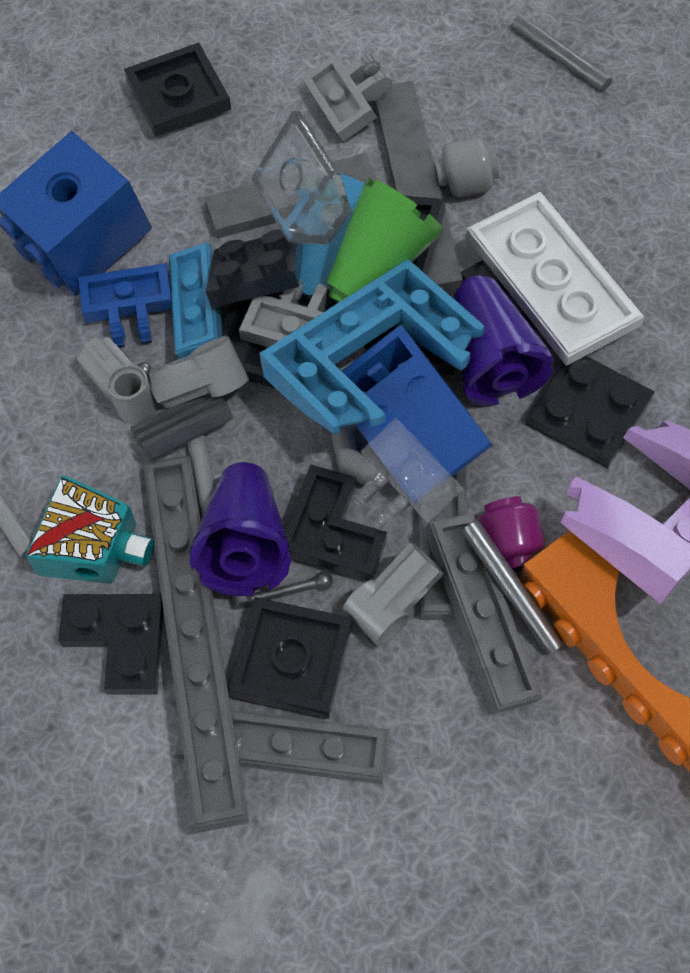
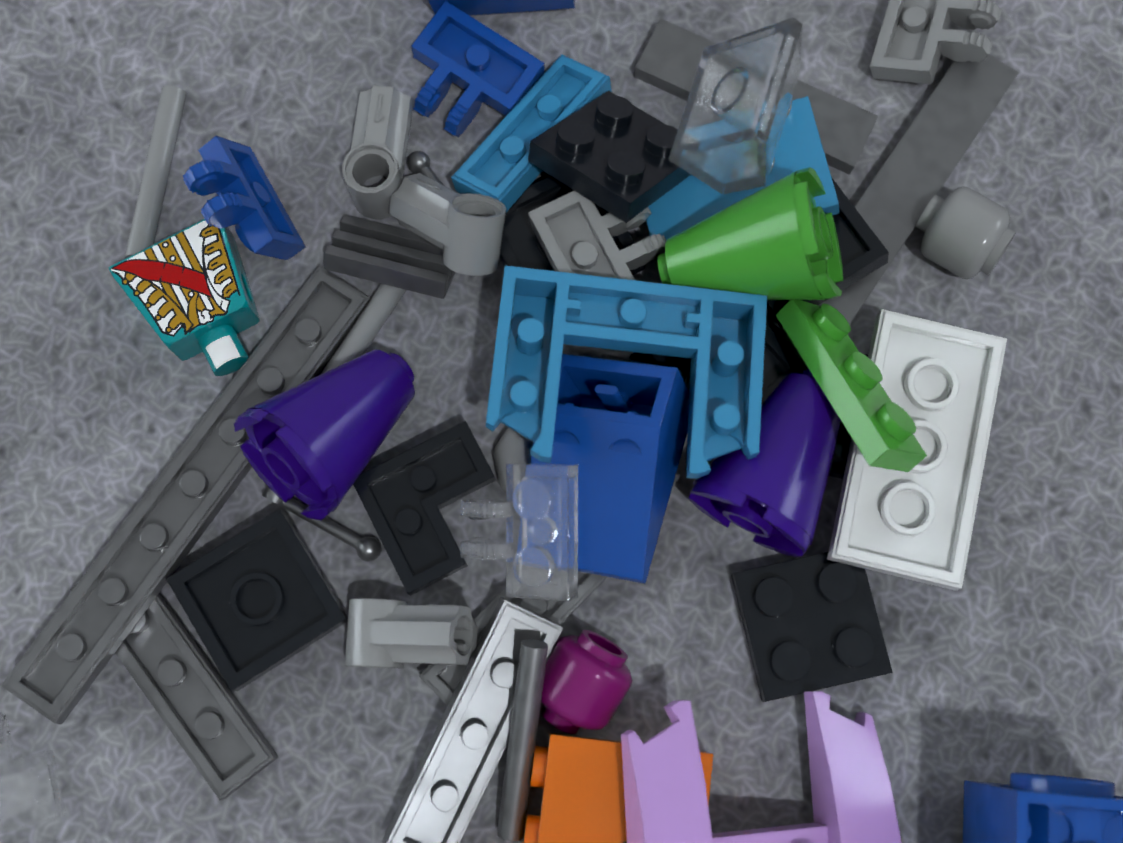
camera: 40 degrees right, 15 degrees up
(68, 463) = (243, 199): none -> blue hinge
(130, 630) = (148, 427): black plate -> none
(492, 264) = (852, 385): none -> bright green plate

